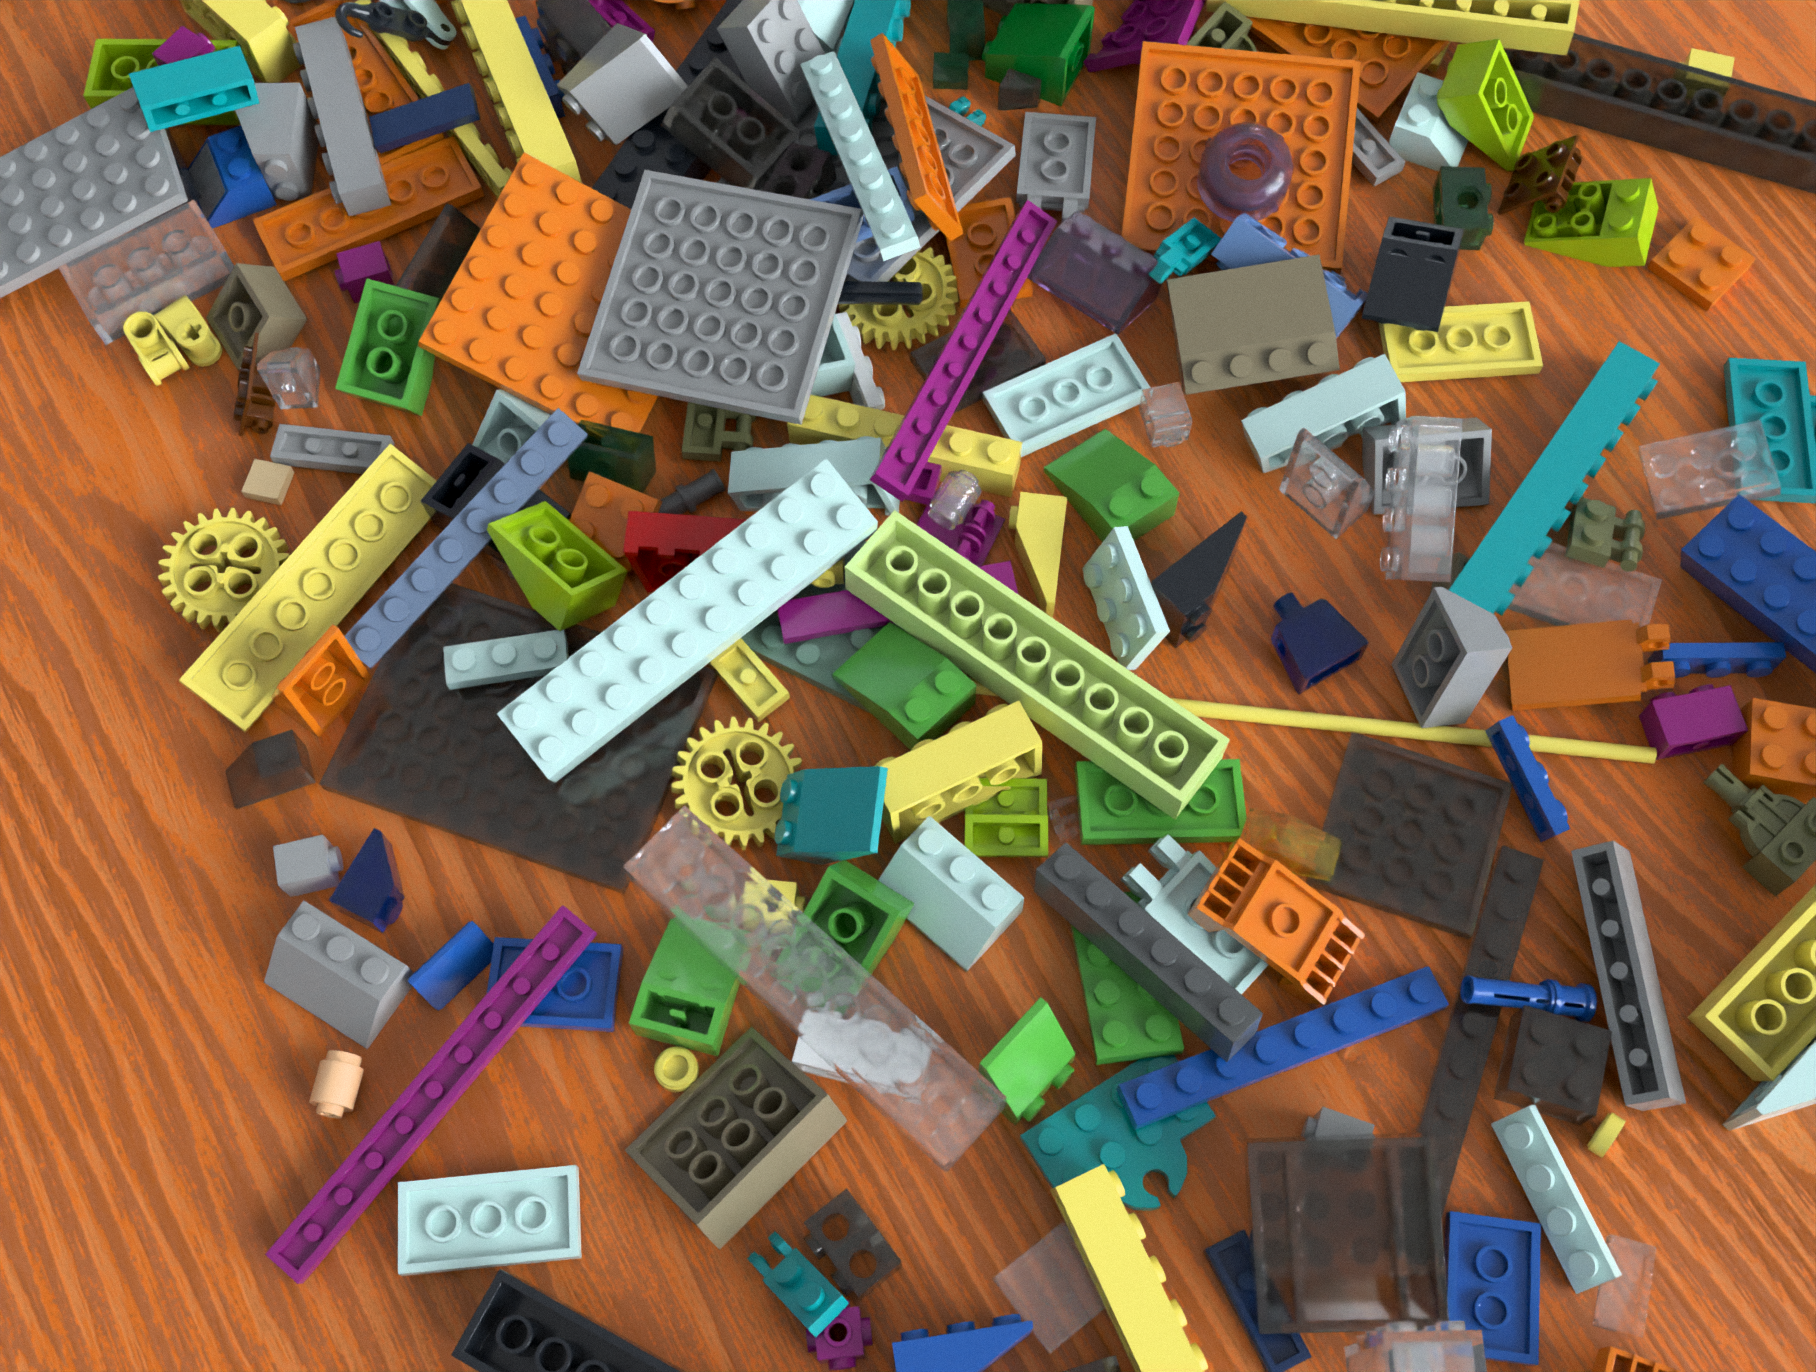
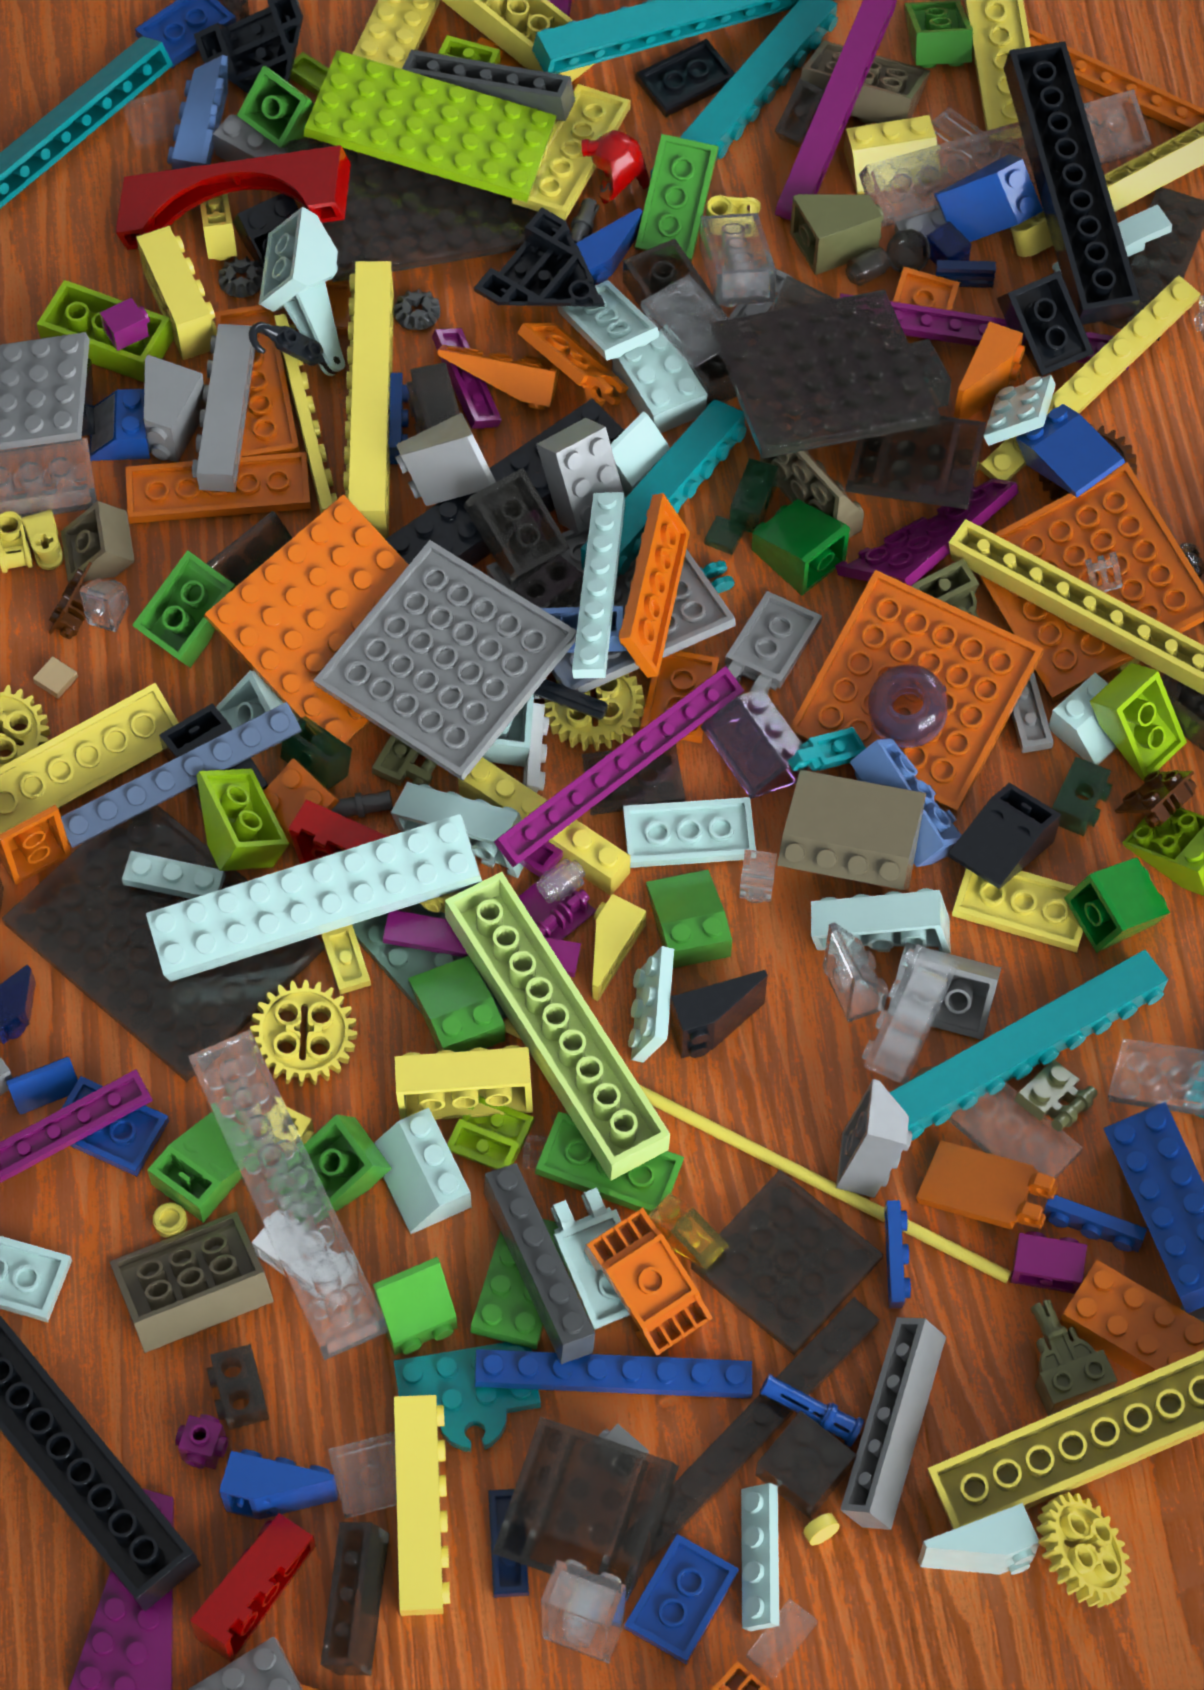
camera: 20 degrees right, 5 degrees down
(194, 88) = (119, 353): teal brick -> none
(327, 448) = (109, 668): light grey plate -> none
(362, 264) = (195, 536): magenta brick -> none
(424, 118) = (288, 431): dark blue tile -> none
(800, 1286) = (188, 1395): teal hinge -> none
(831, 814) = (354, 1077): teal slope -> none
(1019, 91) = (768, 572): clear smoke slope -> none
(1314, 641) = (786, 1092): clear blue torso -> none
(1565, 306) = (1116, 904): none -> green slope

